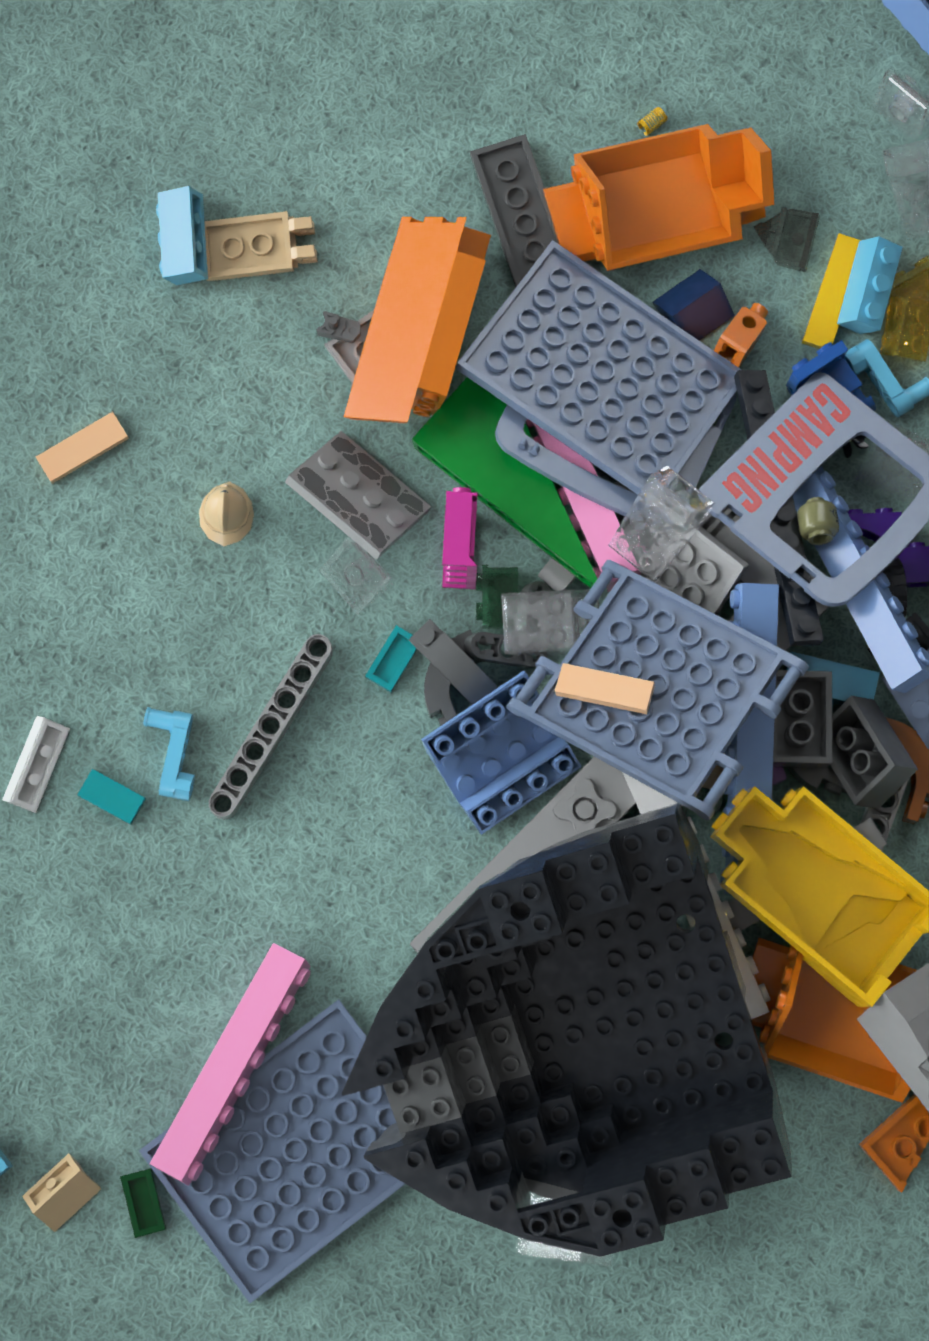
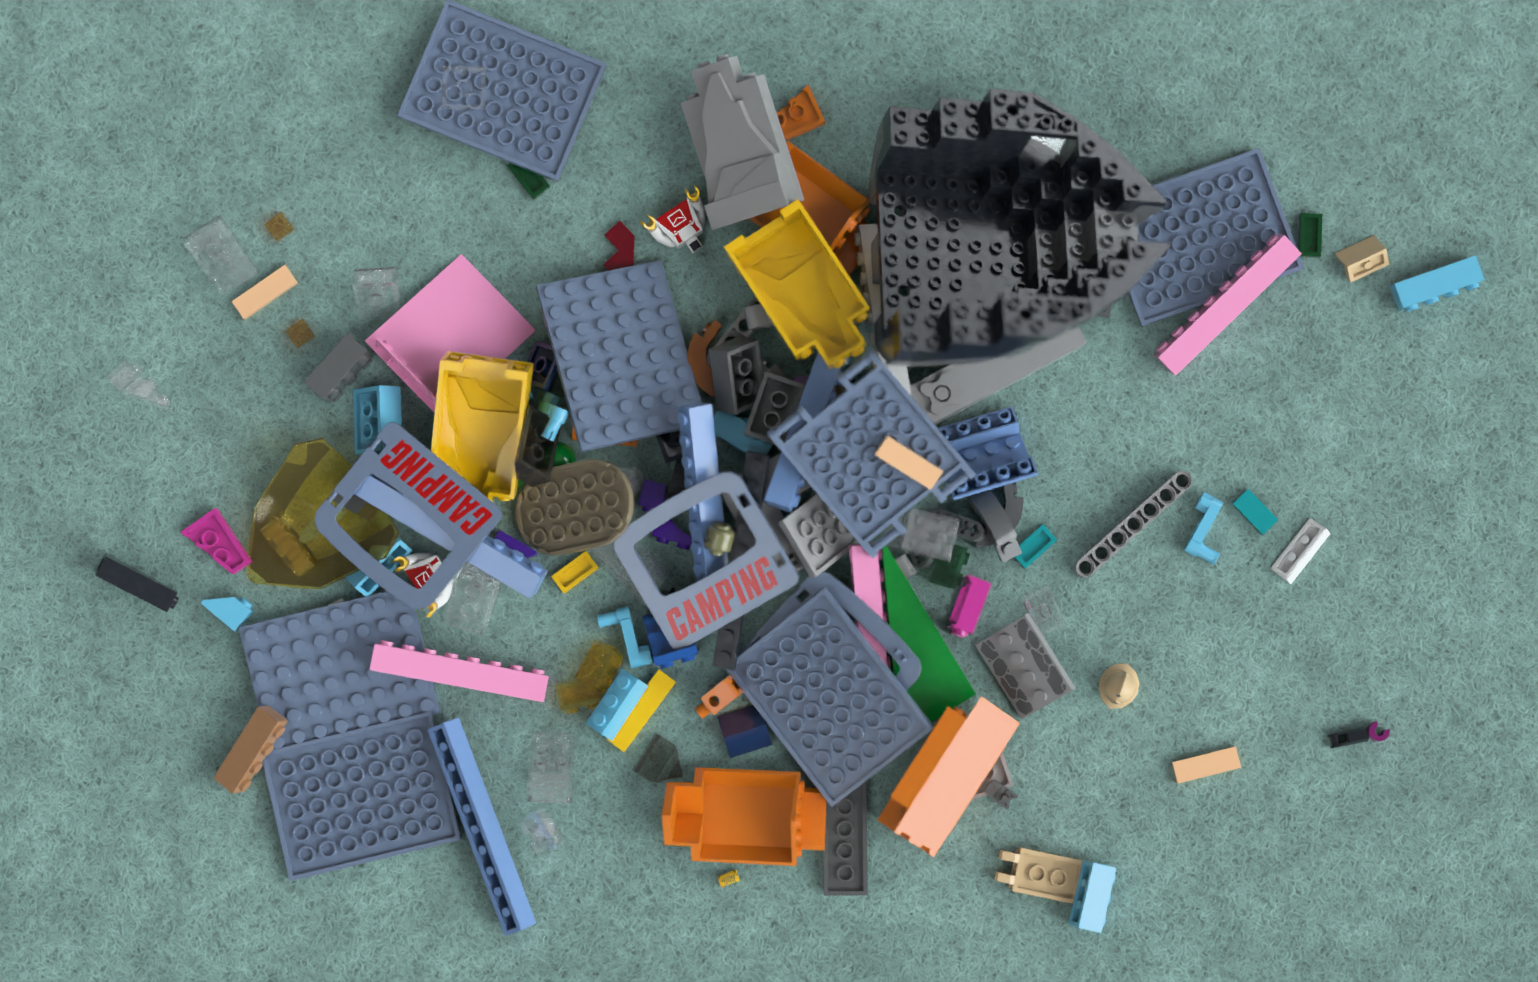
camera: 160 degrees left, 5 degrees up
(660, 522) = (828, 570): clear slope -> none

